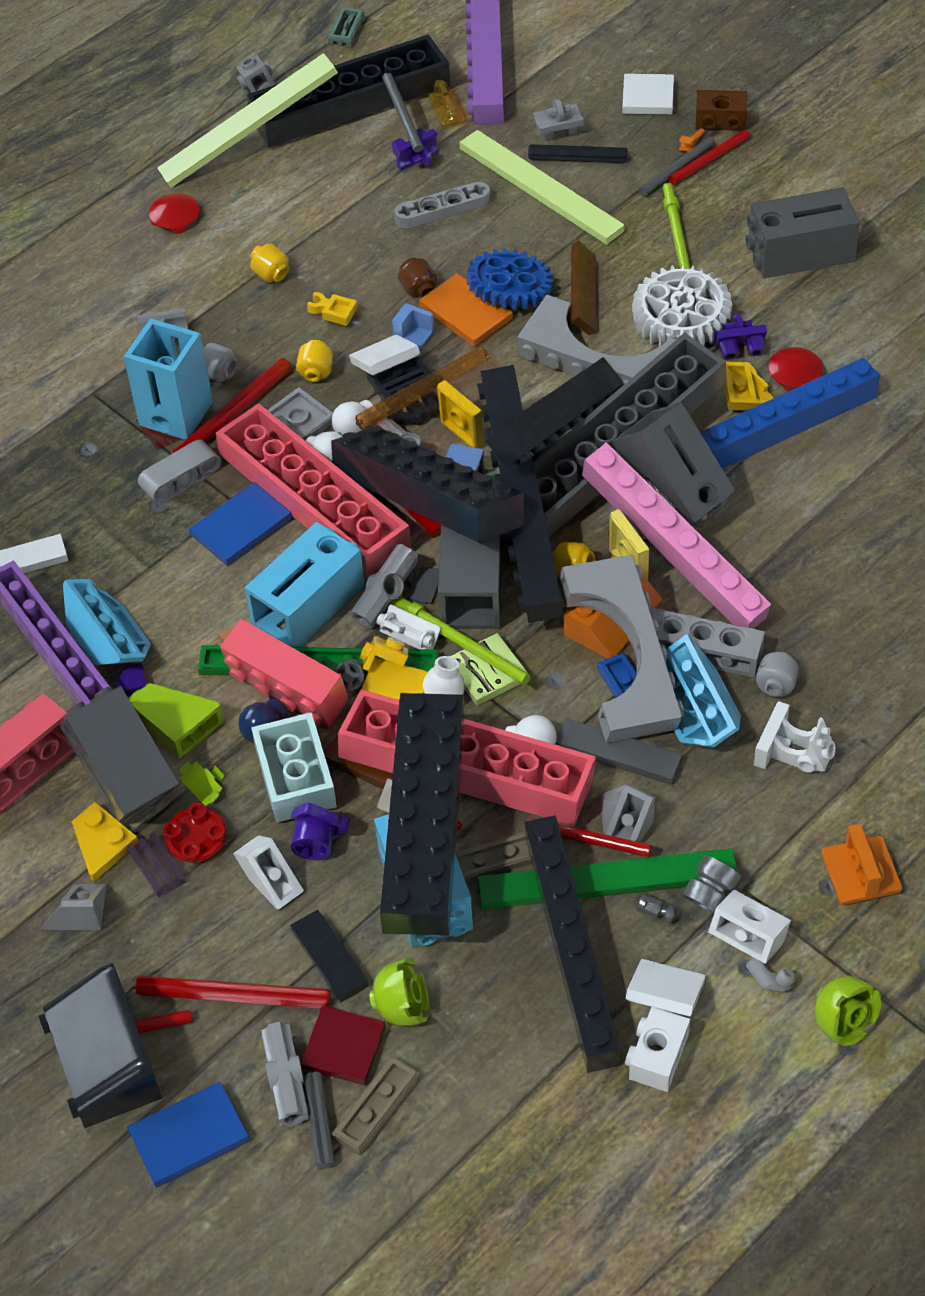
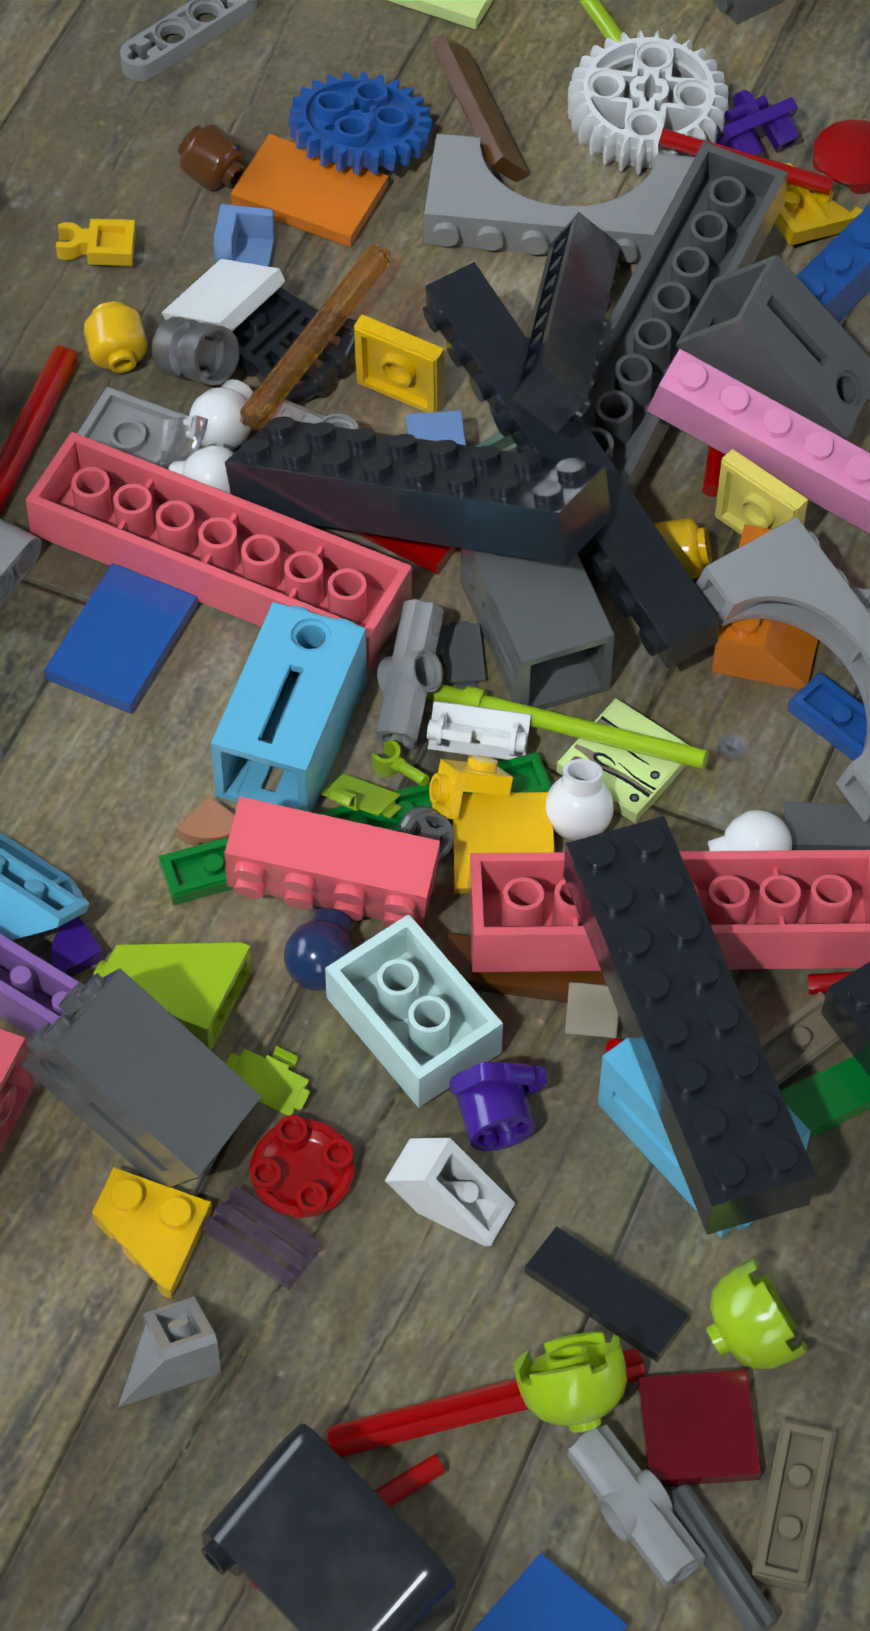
camera: 25 degrees left, 5 degrees up
(276, 992) = (574, 1380): none -> lime cylinder
(322, 423) = (181, 438): none -> clear tile
(328, 645) = (362, 795): none -> lime piece
(352, 378) = (195, 350): none -> flat silver wheel
(355, 633) = (395, 764): none -> lime hand
(730, 360) = (795, 175): none -> red bar

